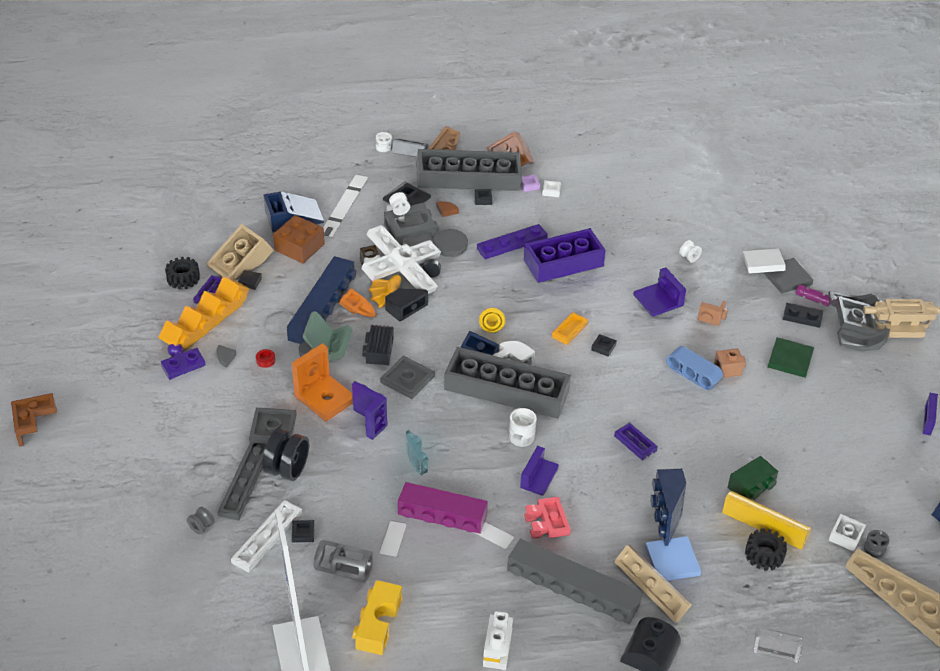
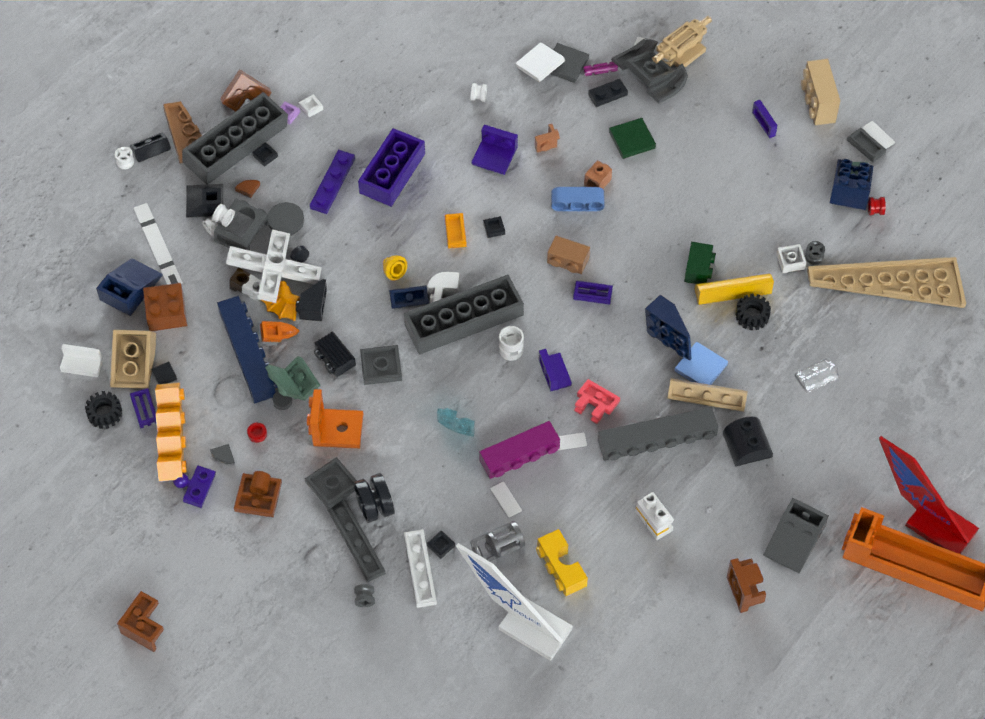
camera: 40 degrees left, 15 degrees up
(206, 235) = (81, 360): none -> white panel
(214, 396) = (258, 494): none -> dark orange plate
(372, 407) = (390, 410): dark purple bracket -> none
(642, 400) = (568, 255): none -> medium nougat brick

